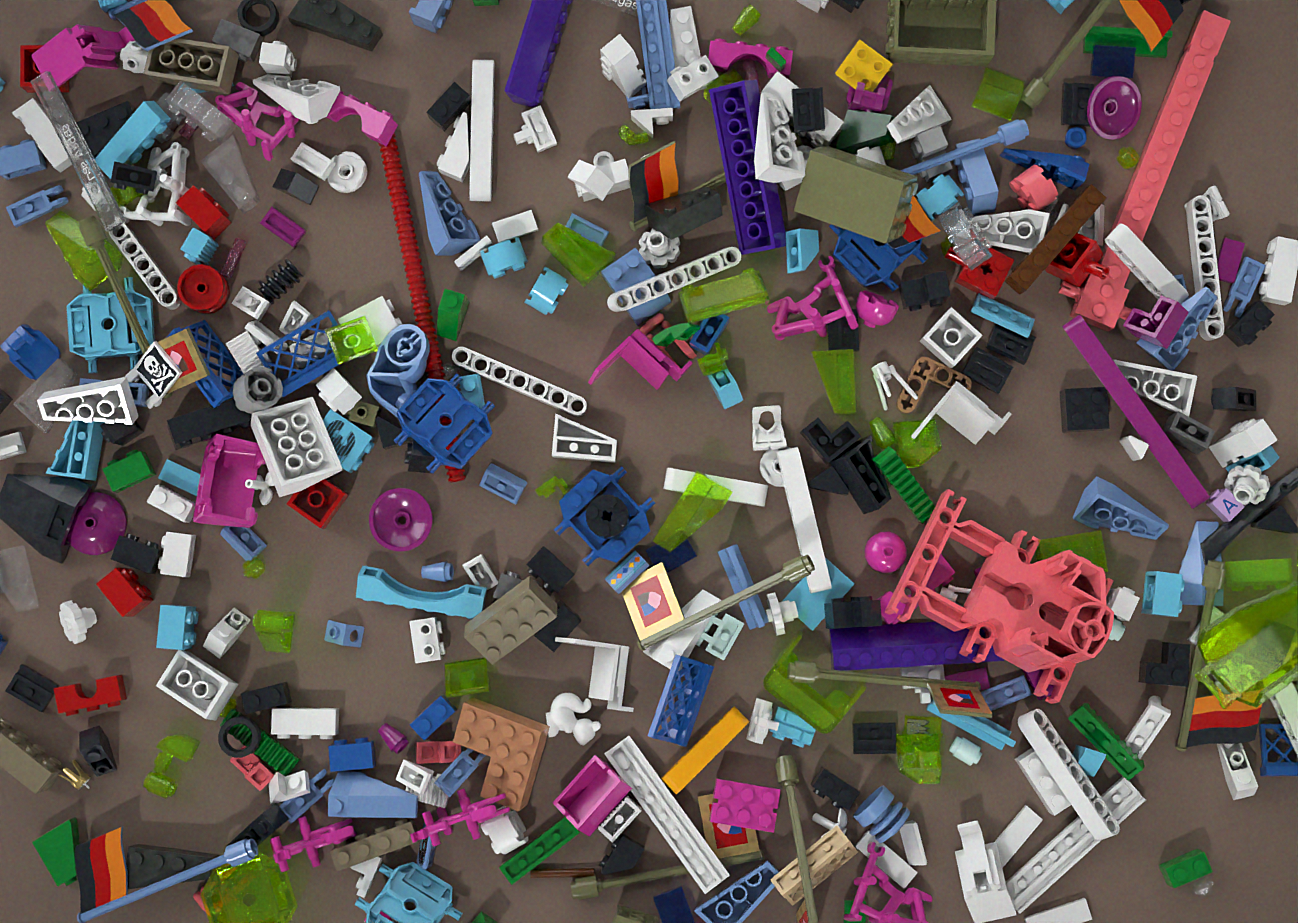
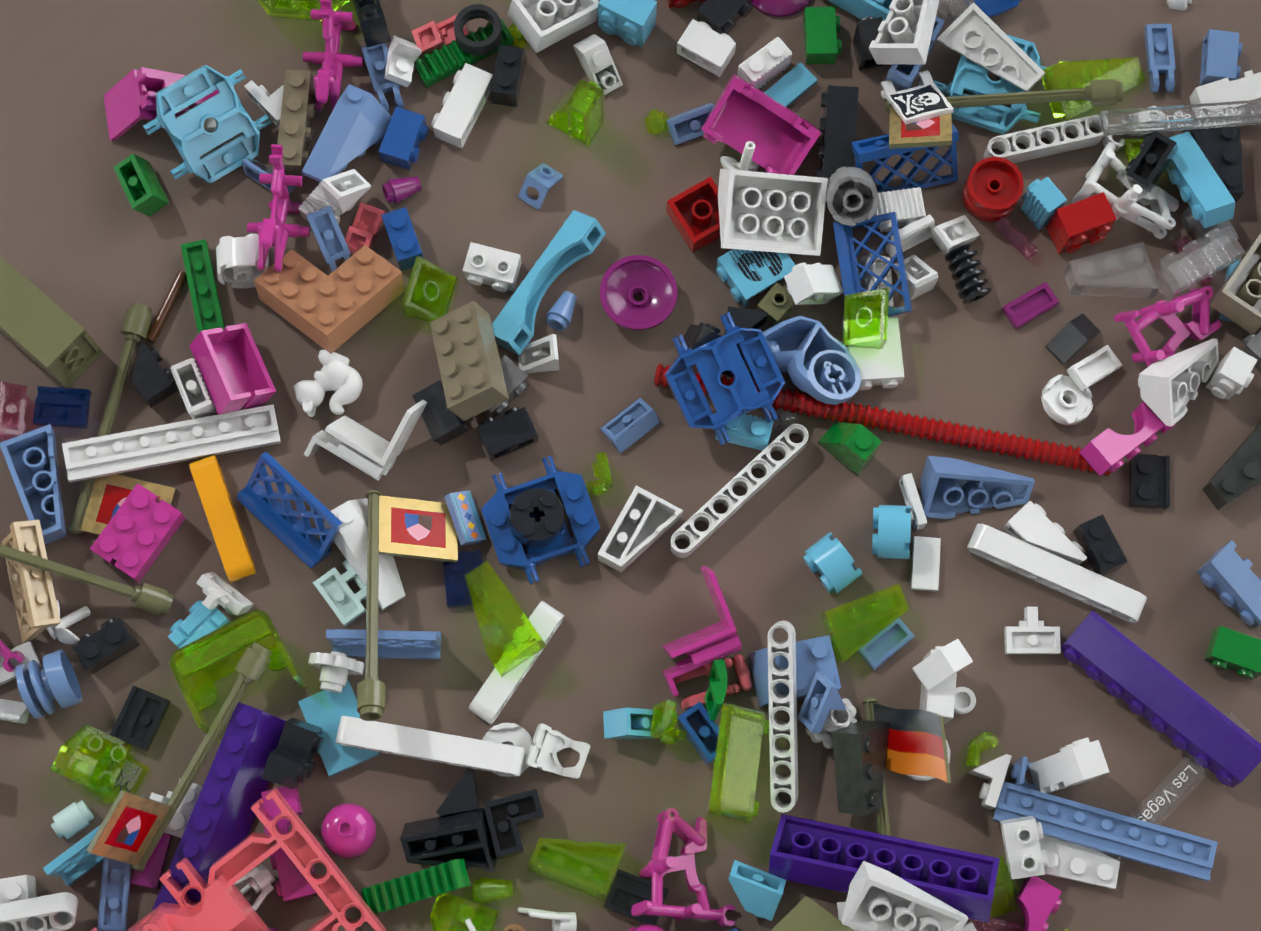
camera: 115 degrees right, 10 degrees down
(87, 338) = (987, 45): none -> white wing
(383, 89) = (1149, 481): none -> black plate
(655, 257) = (818, 702): none -> medium blue slope

